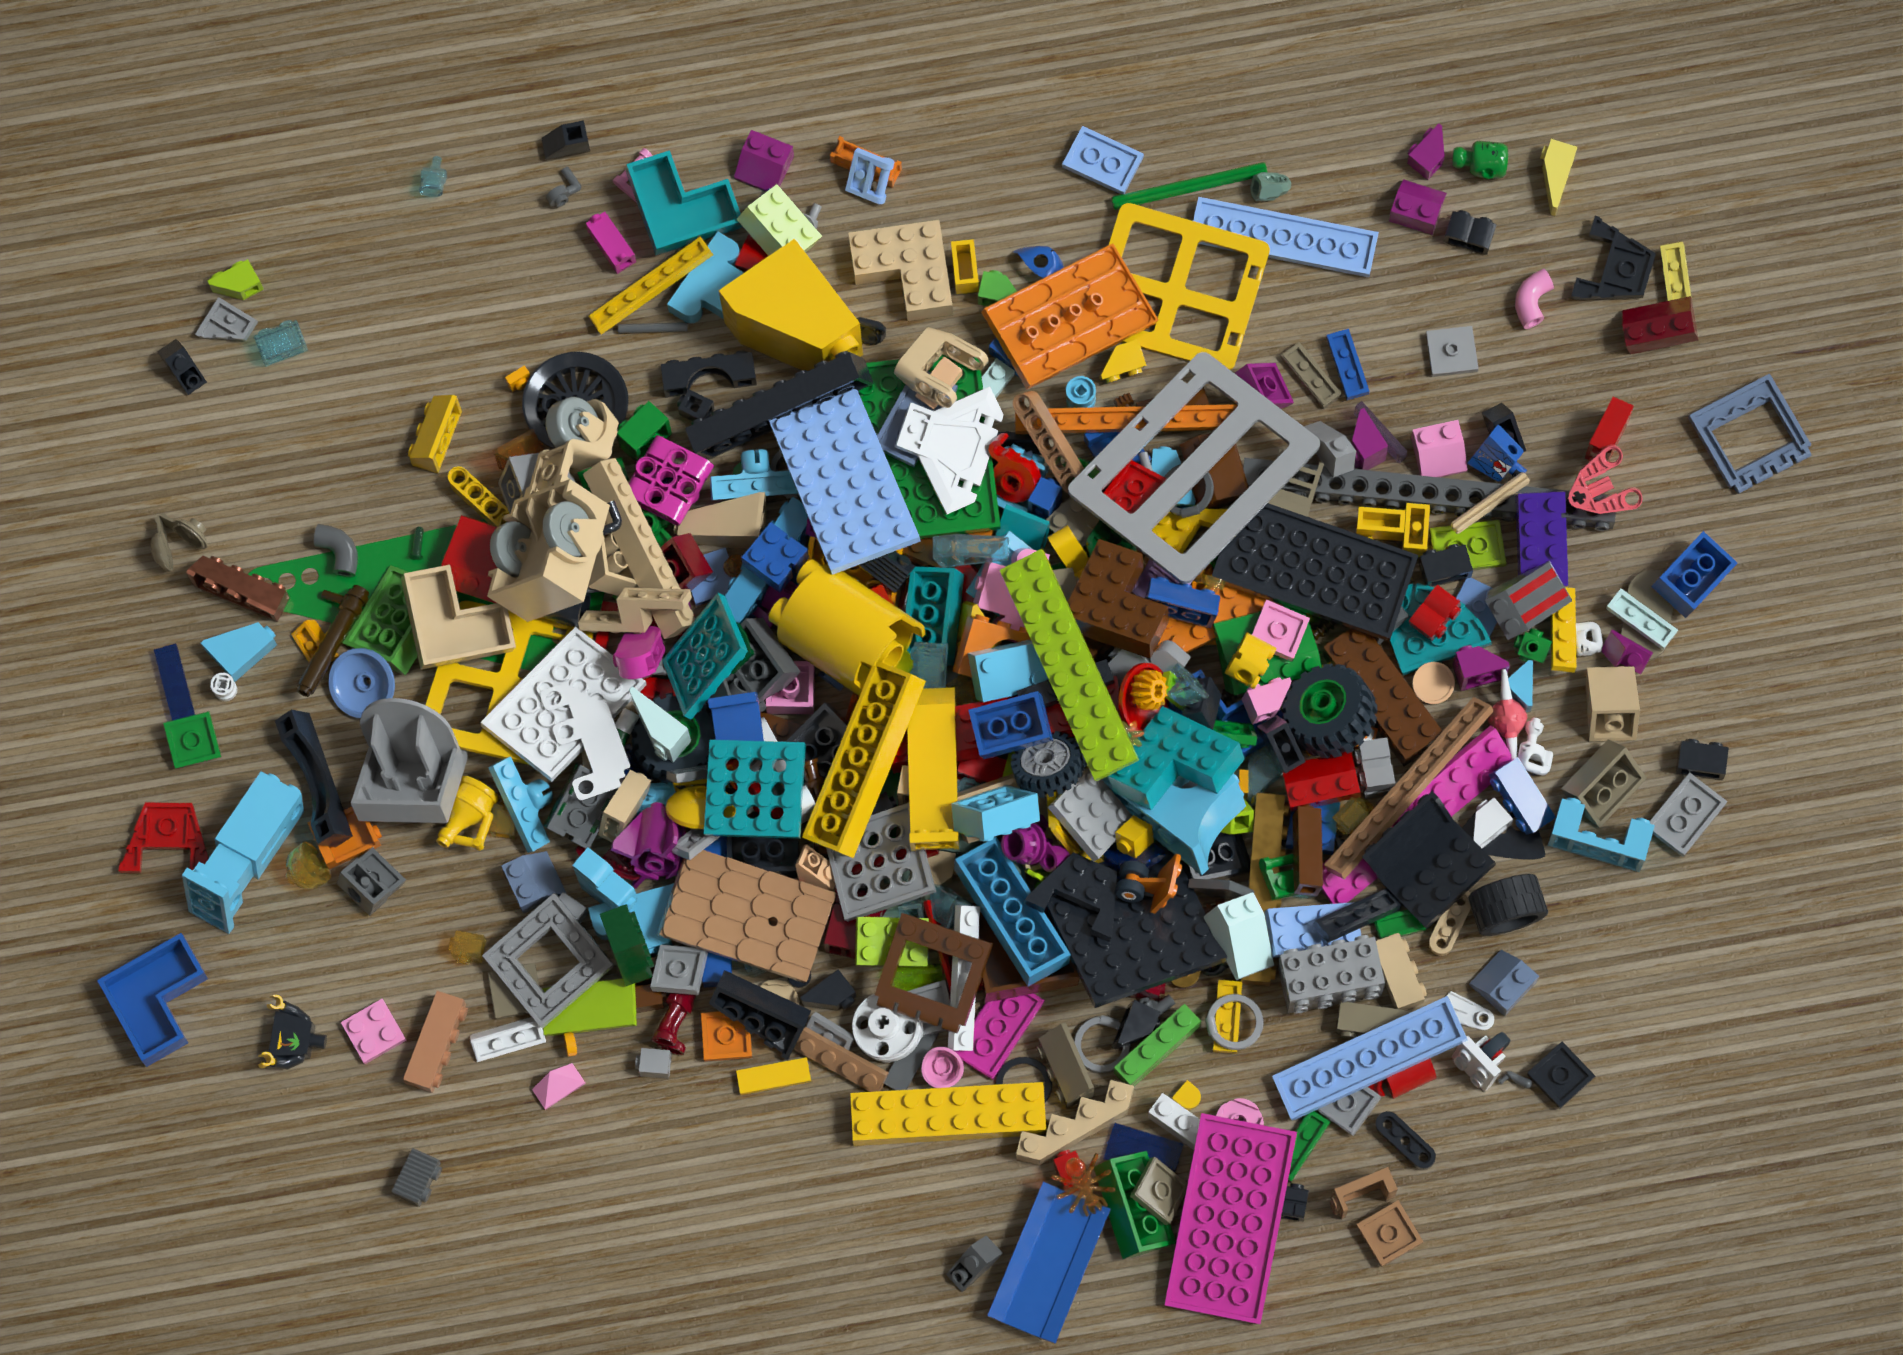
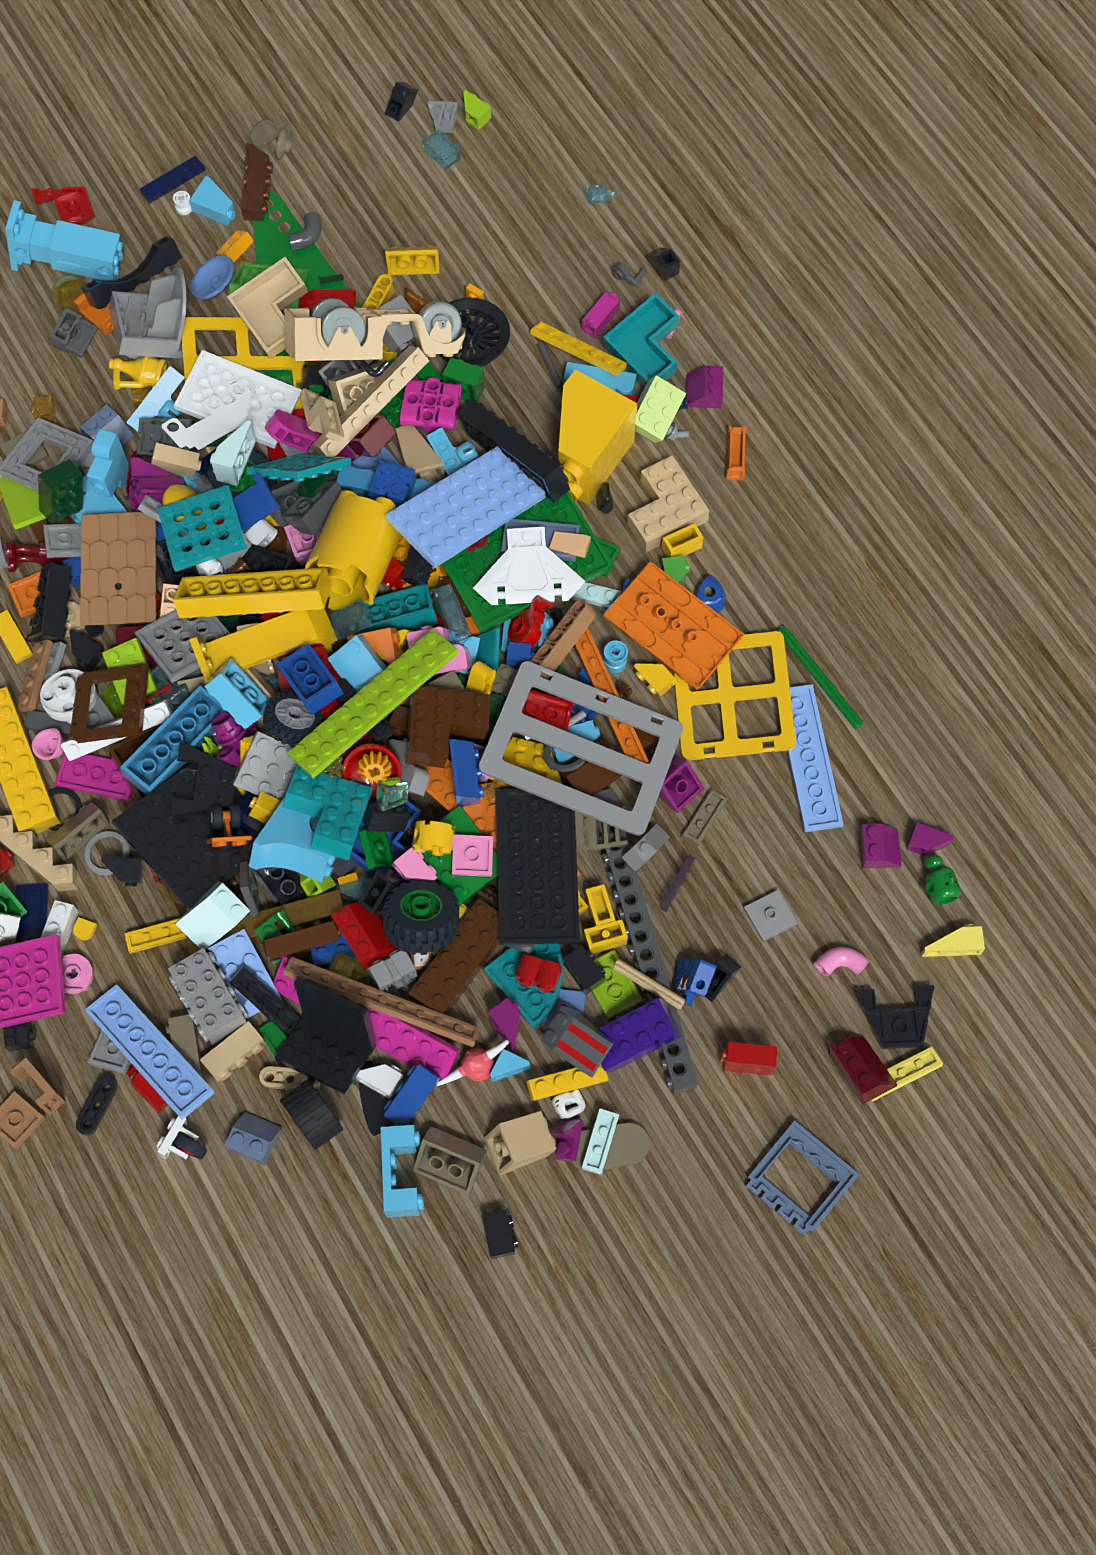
camera: 65 degrees right, 5 degrees down
(192, 739) = (137, 197): green plate -> none
(349, 611) = (263, 253): dark brown cylinder -> none
(681, 375) = (518, 392): black arch -> none
(692, 400) = (500, 406): black brick -> none
(862, 175) = (726, 448): light blue plate -> none
(925, 352) = (589, 524): tan connector -> none
(1102, 160) = (811, 609): light blue plate -> none
(1157, 1046) = (114, 891): bright green brick -> none
(1162, 1006) = (148, 881): dark grey arm -> none
(1212, 1028) = (140, 925): light grey piece -> none
(1269, 186) = (845, 732): sand green rock -> none
(1307, 1137) = (70, 1028): green tile -> none
(1347, 364) = (724, 840): blue plate -> none
(1368, 443) = (661, 872): magenta slope -> none
(1433, 683) = (484, 995): light nougat piece -> none
(1439, 449) = (681, 933): bright pink slope -> none
(1469, 1012) = (221, 1115): white piece -> none
(1470, 232) = (875, 893): black brick -> none
(1519, 1080) = (176, 1178): dark grey piece -> none
(1534, 751) = (457, 1090): white piece -> none
(1538, 651) = (543, 1061): green brick -> none
(1560, 1075) = (189, 1211): black plate -> none
(1611, 503) = (685, 1079): coral connector -> none
(1686, 814) = (447, 1238): light grey plate -> none
(1694, 574) = (655, 1170): blue brick -> none

